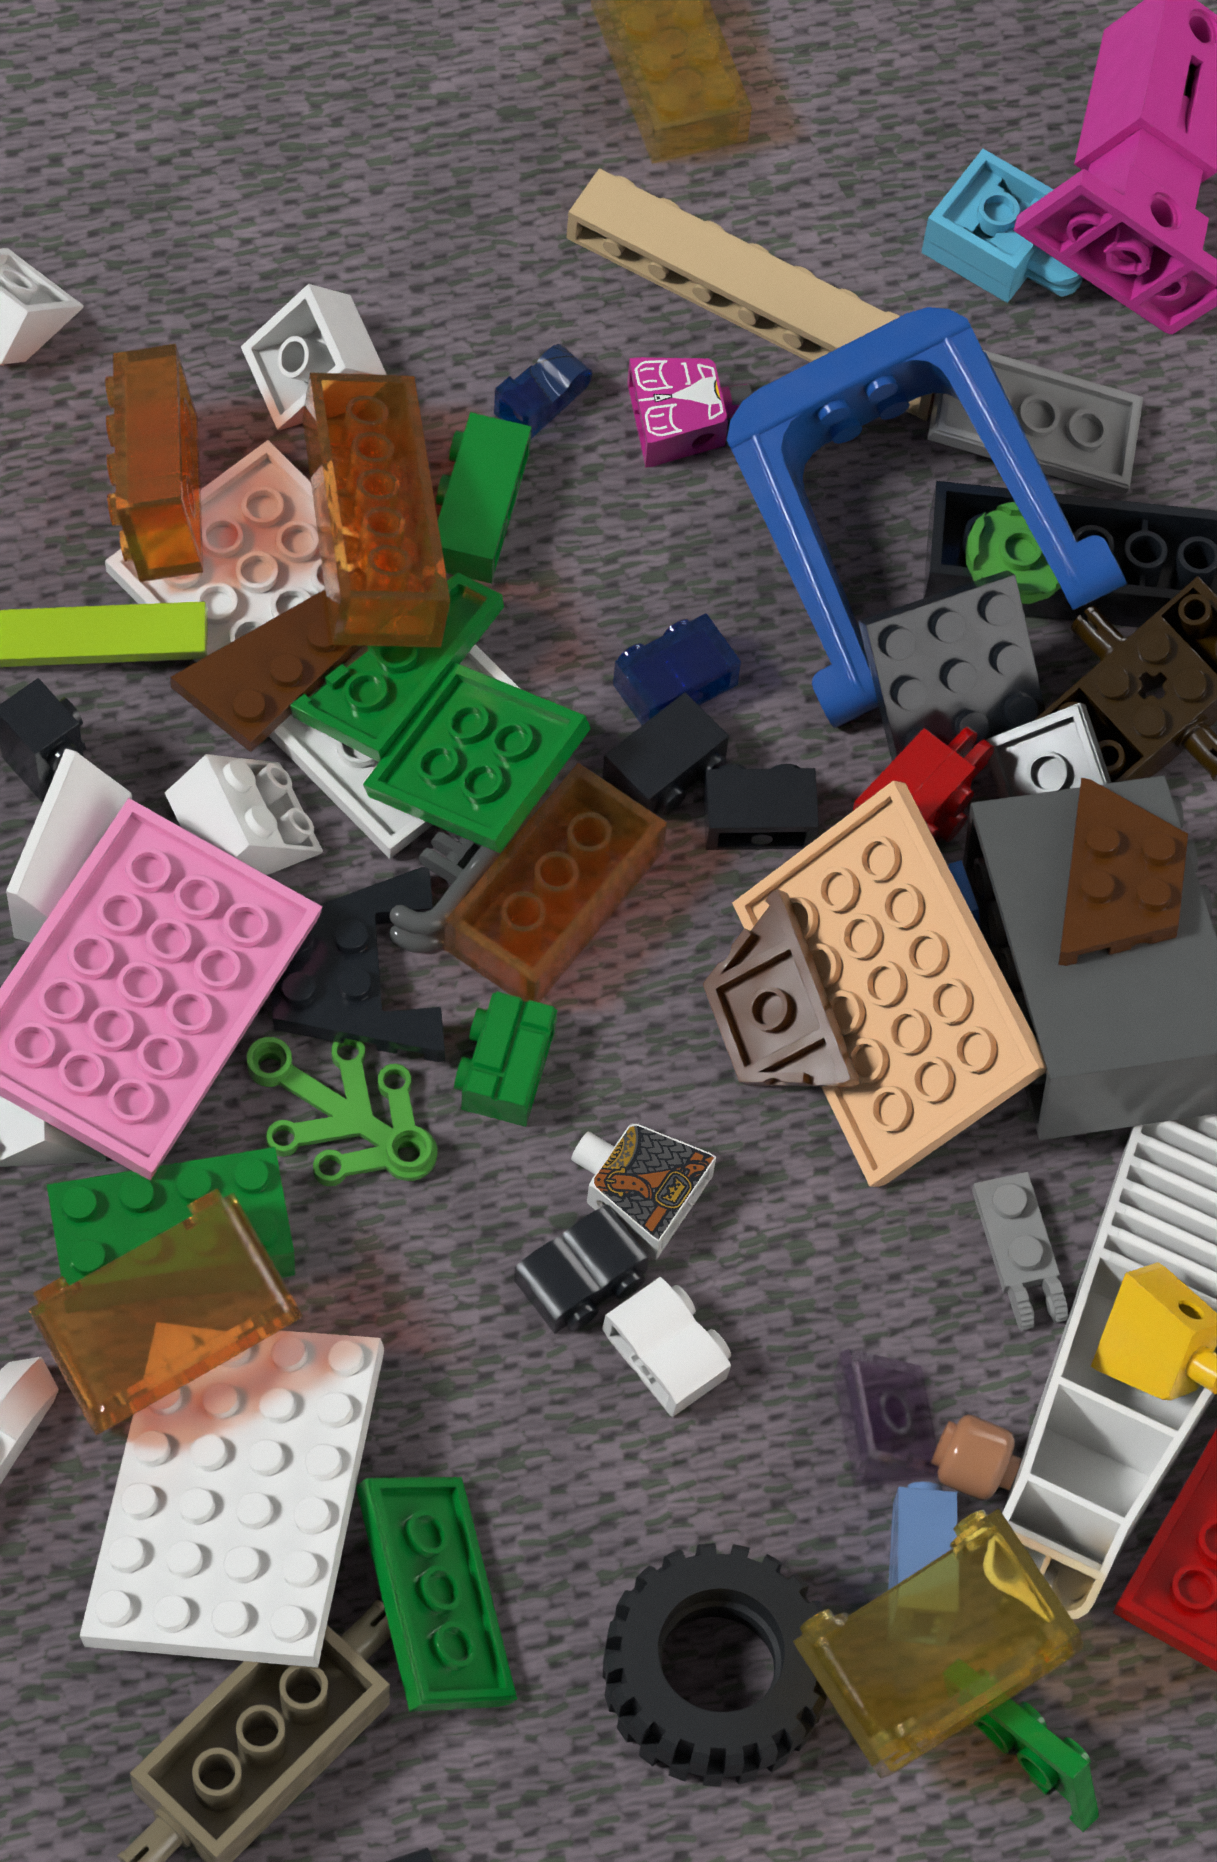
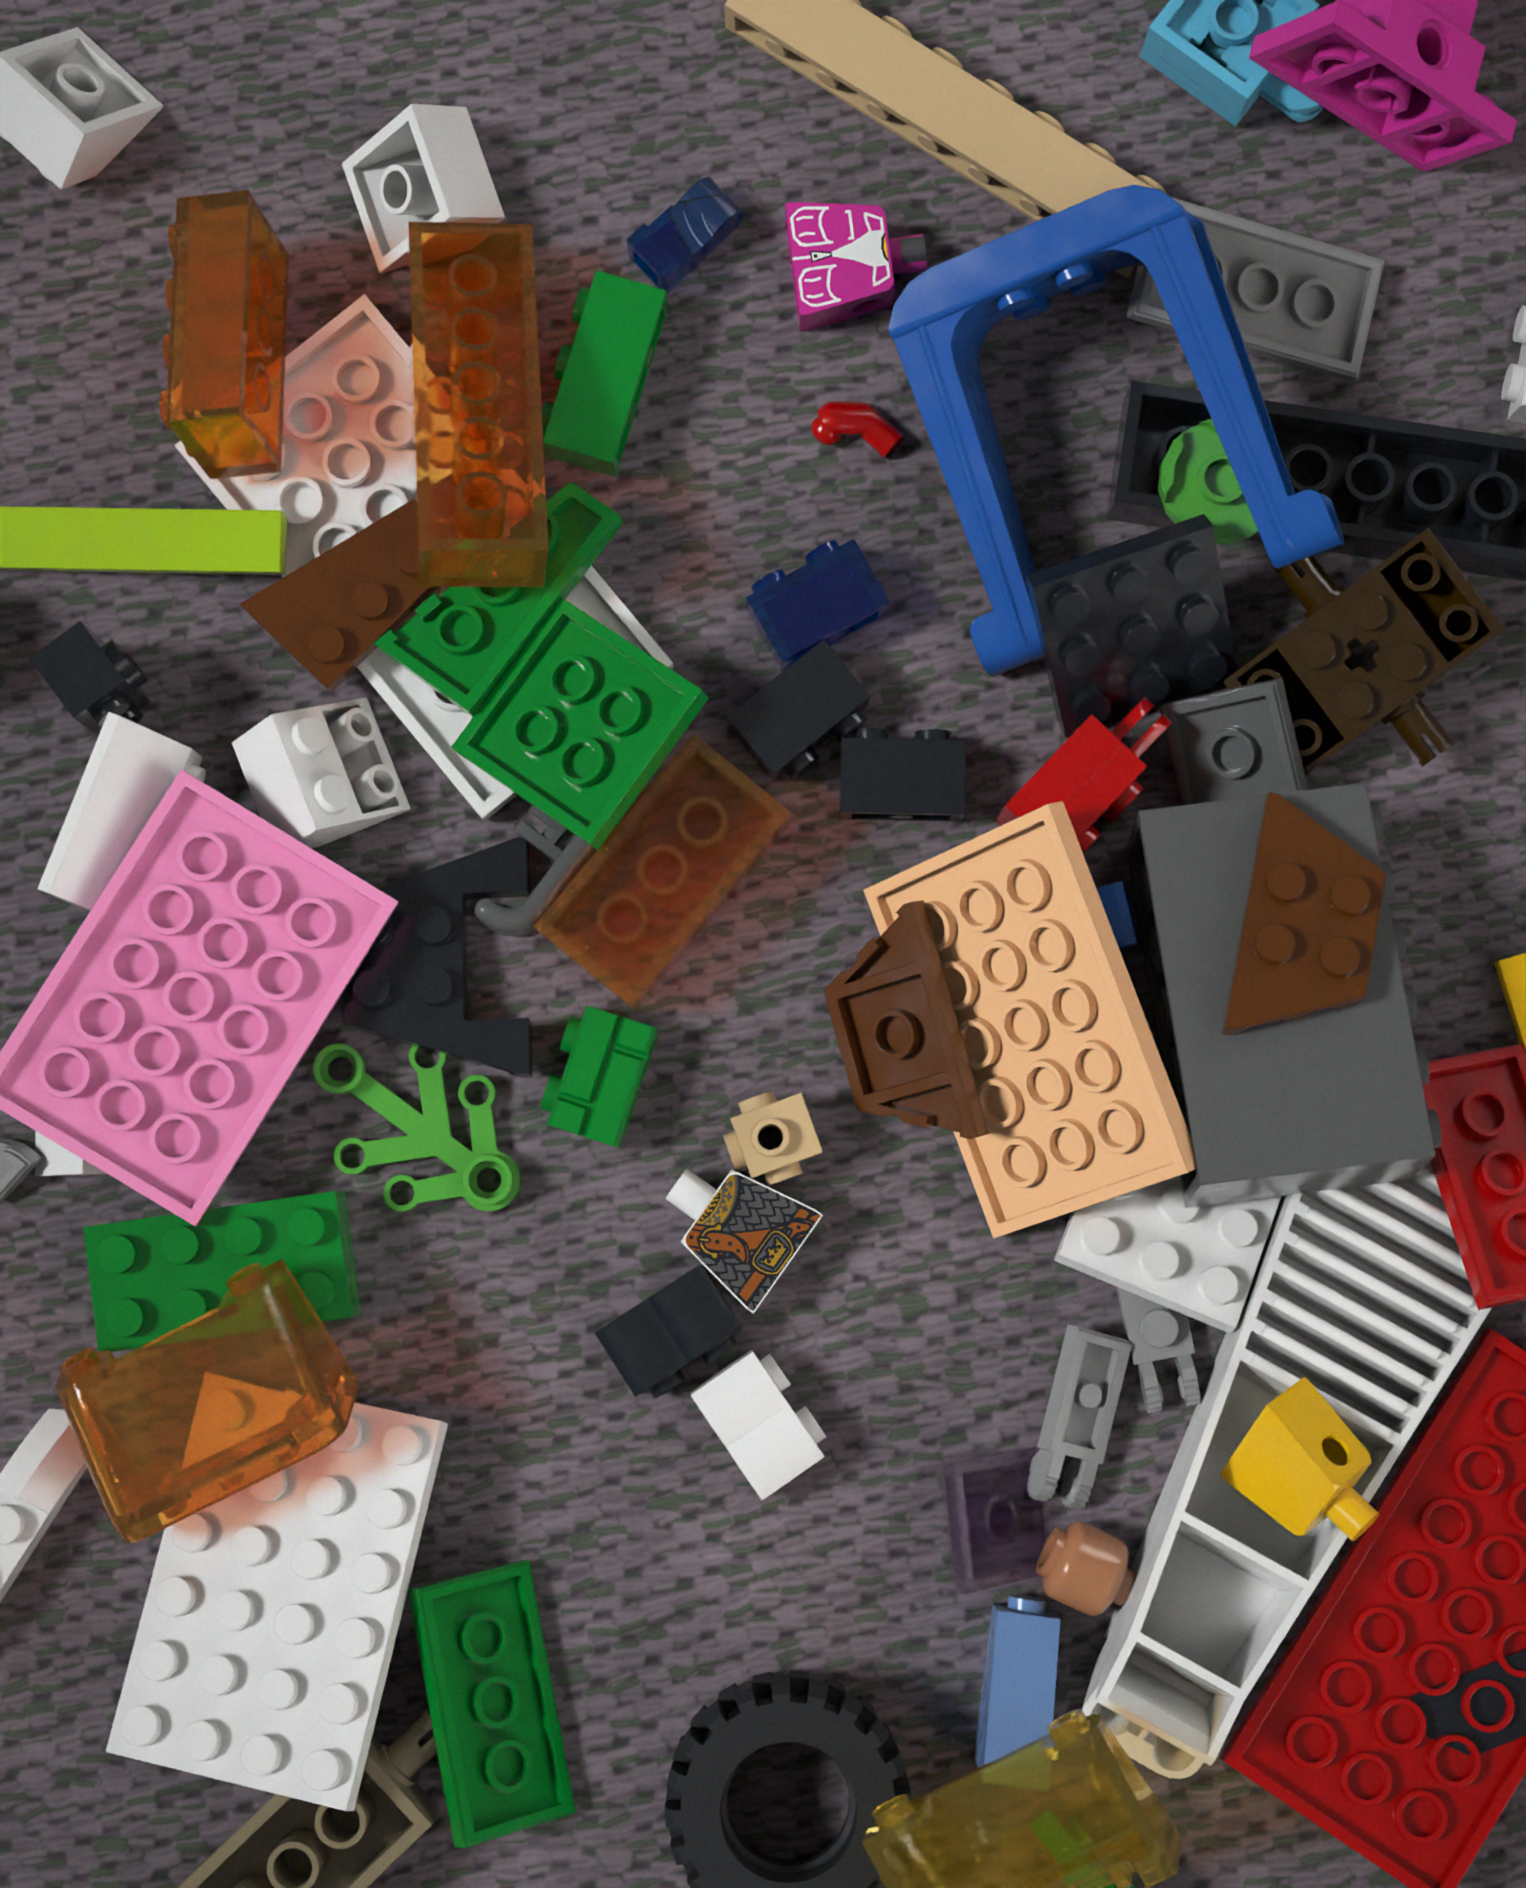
camera: 10 degrees right, 20 degrees up
(668, 1097) = (787, 1116): none -> tan brick
(700, 530) = (855, 419): none -> red arm
(959, 1328) = (1079, 1415): none -> light grey hinge
(1026, 1180) = (1172, 1254): none -> white plate

